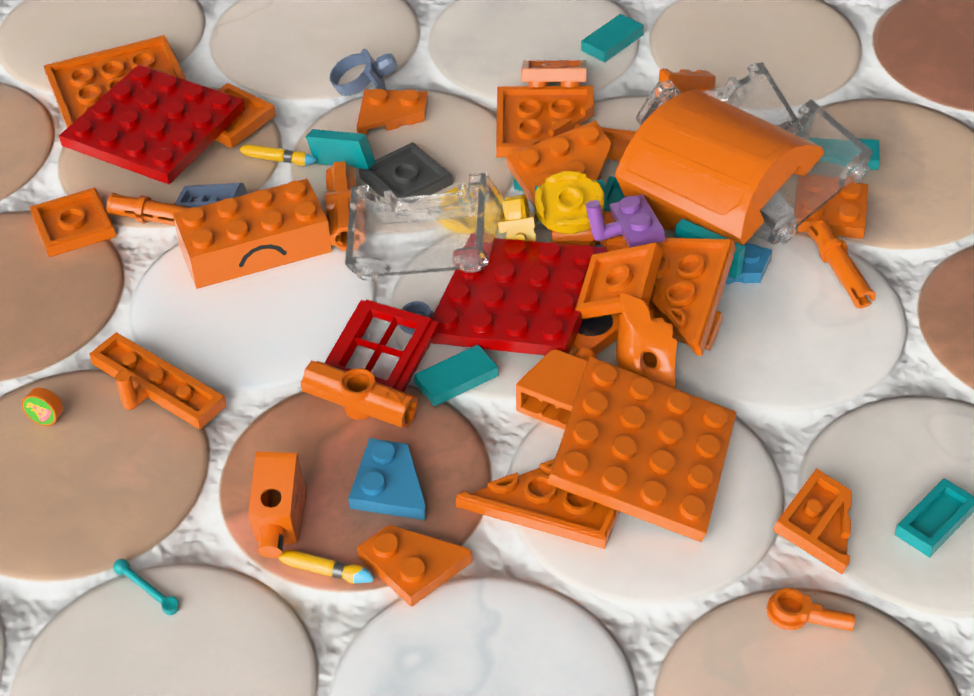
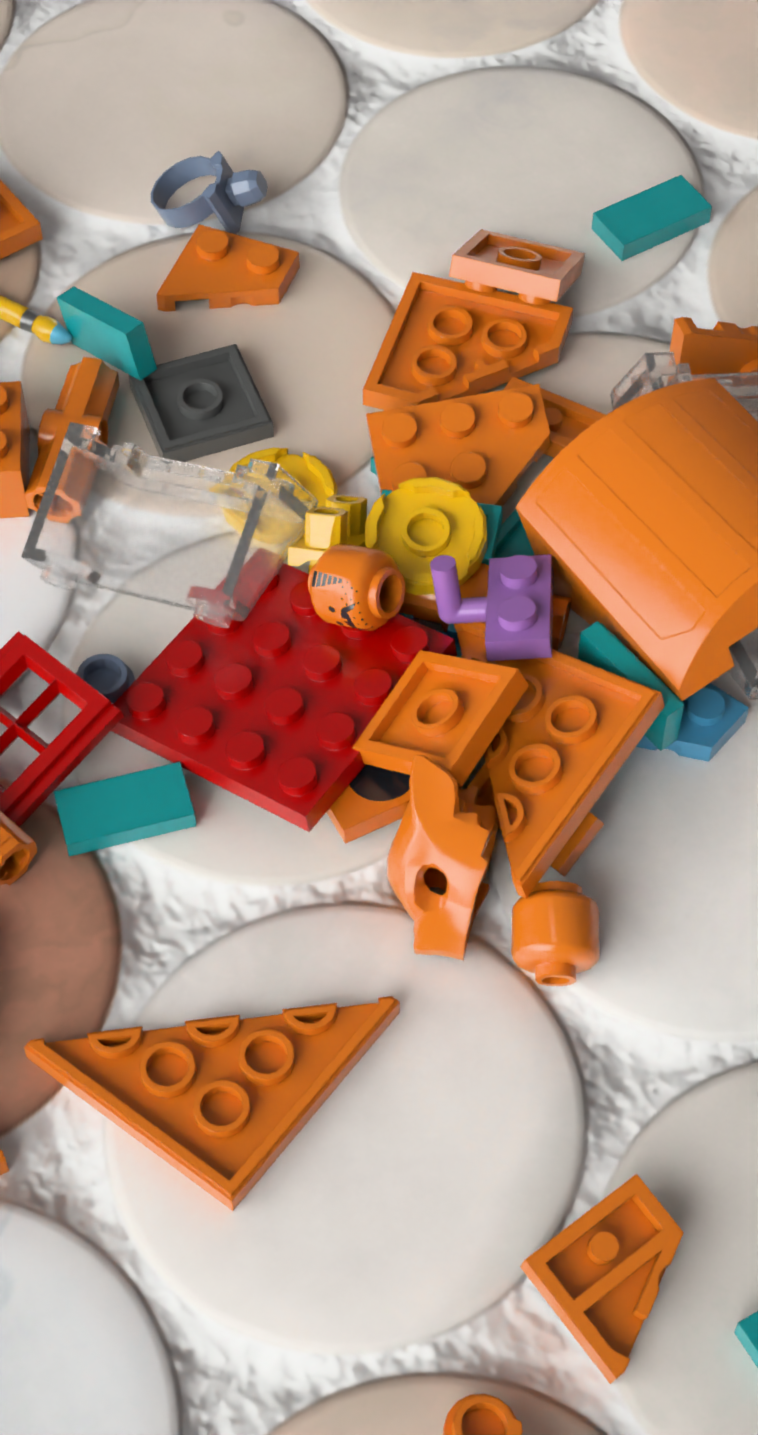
camera: 15 degrees right, 10 degrees up
(546, 230) = (356, 587): none -> orange head
(552, 385) = (280, 888): orange torso -> none
(643, 449) = (359, 1049): orange plate -> none
(720, 373) = (556, 933): none -> orange head

